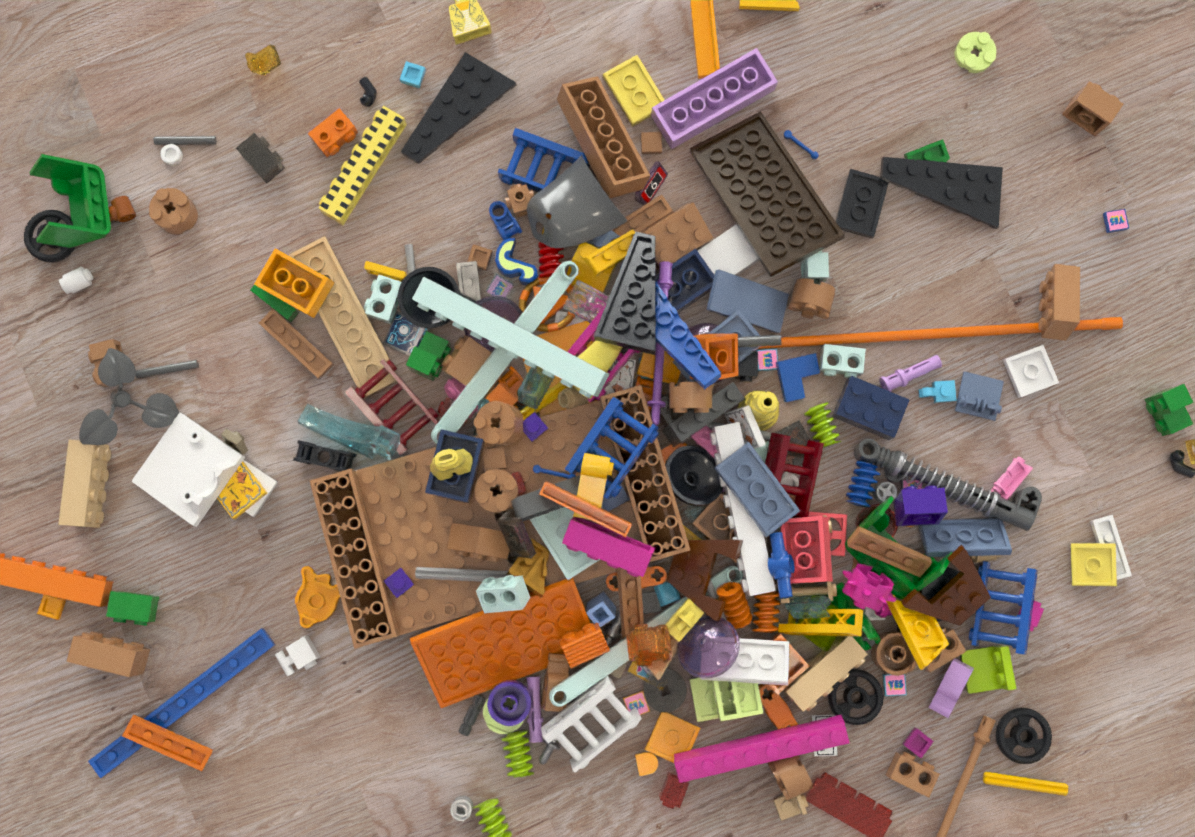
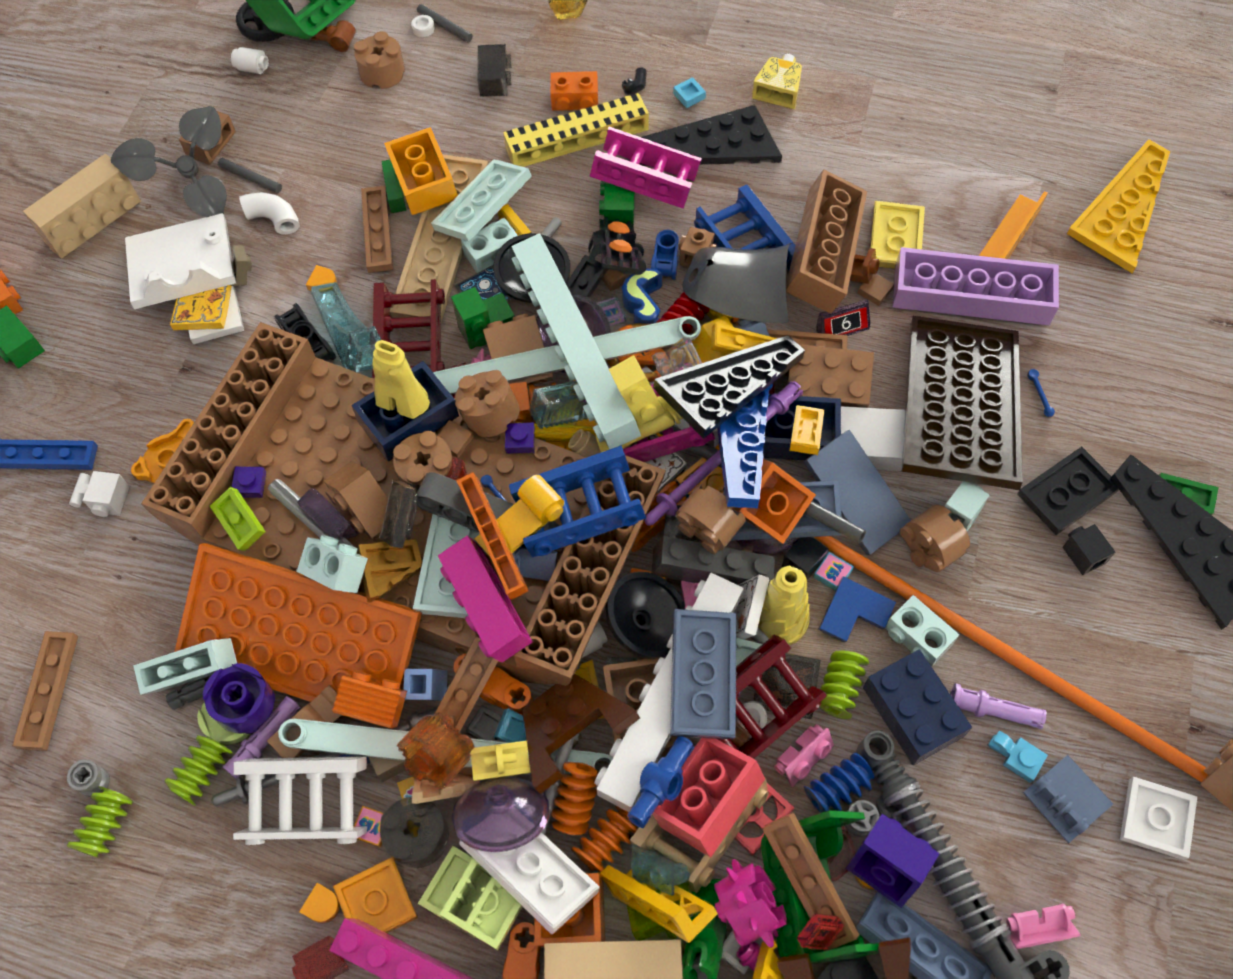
camera: 45 degrees right, 20 degrees down
(210, 383) = (272, 207): none -> white cylinder
(293, 407) = (320, 276): none -> light orange tile
(353, 273) = (481, 200): none -> light aqua plate
(387, 785) = (45, 691): none -> medium nougat plate
(417, 610) = (237, 519): none -> lime plate
(436, 198) = (617, 203): none -> green brick
(445, 180) = (643, 179): none -> dark pink fence
(460, 710) = (184, 666): none -> light aqua brick
(467, 242) = (617, 247): none -> black piece
(468, 567) = (326, 515): none -> clear purple slope
(590, 352) = (636, 390): none -> light yellow brick
(637, 133) = (864, 267): none -> dark orange bracket
(694, 288) = (807, 430): none -> yellow plate
(830, 488) = (814, 745): none -> bright pink hinge
(896, 235) = (1088, 548): none -> black brick
(913, 574) = (820, 931): none -> clear red tile

